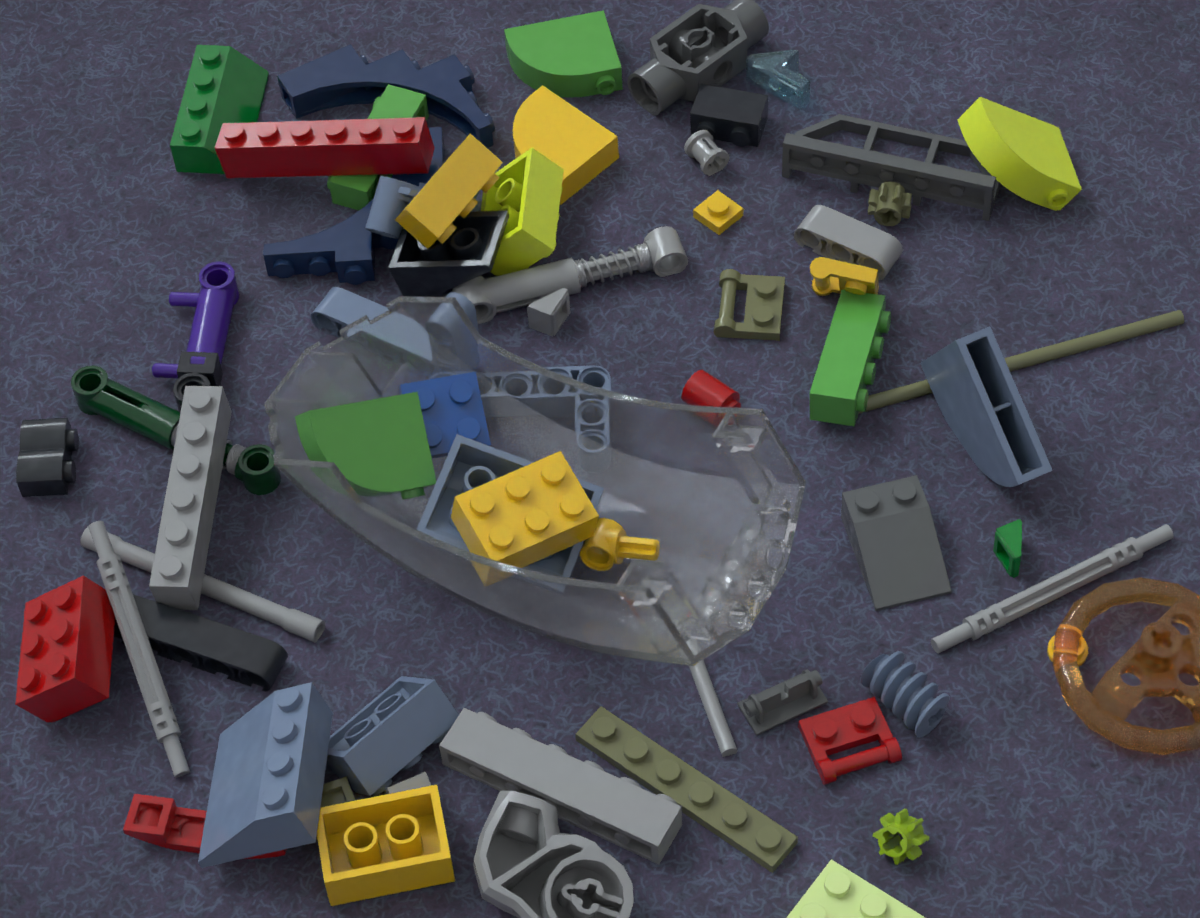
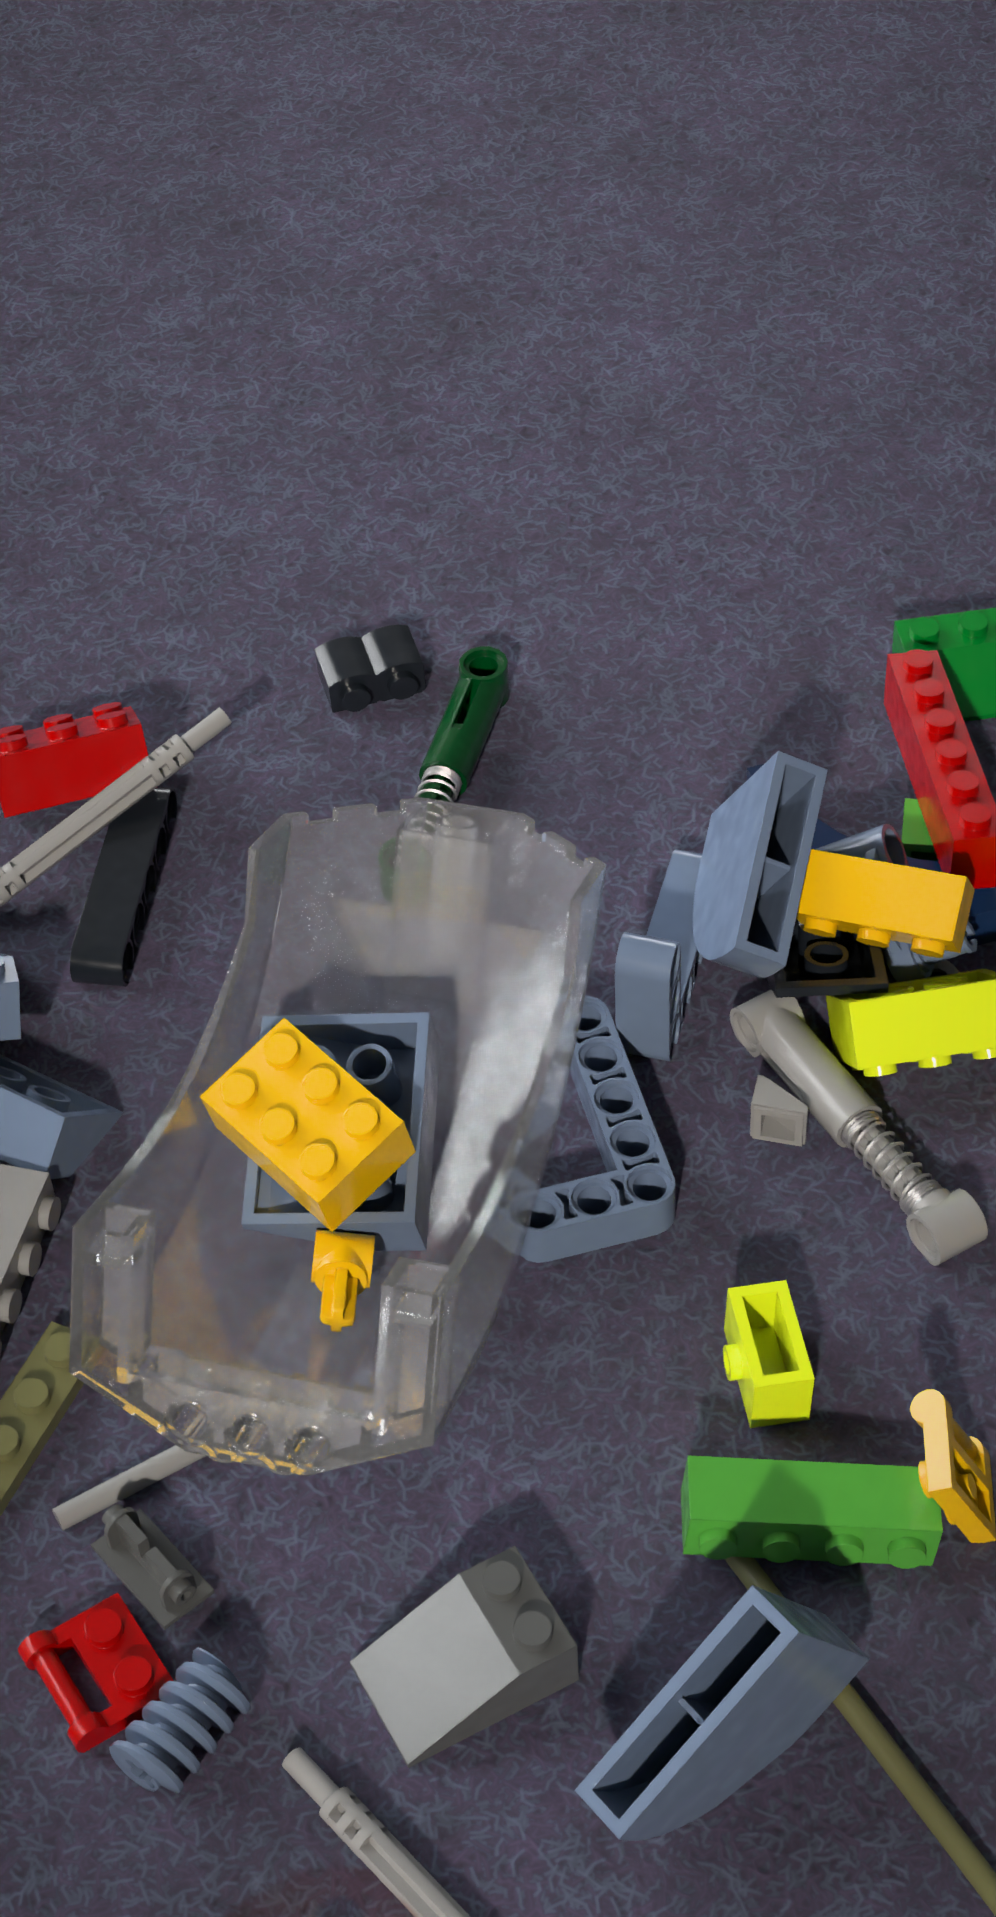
camera: 75 degrees right, 5 degrees down
(191, 498) = (227, 816): light grey brick -> none
(209, 330) = (552, 769): dark purple piece -> none
(289, 619) = (183, 970): light grey piece -> none
(373, 443) = (375, 920): bright green brick -> none
(392, 248) = (757, 867): none -> sand blue brick
(450, 408) = (488, 1009): blue plate -> none
(707, 390) = (681, 1349): red brick -> none
(736, 350) = (767, 1354): none -> neon yellow brick
(762, 306) = (887, 1384): olive plate -> none
(1008, 546) = (498, 1831): green slope -> none

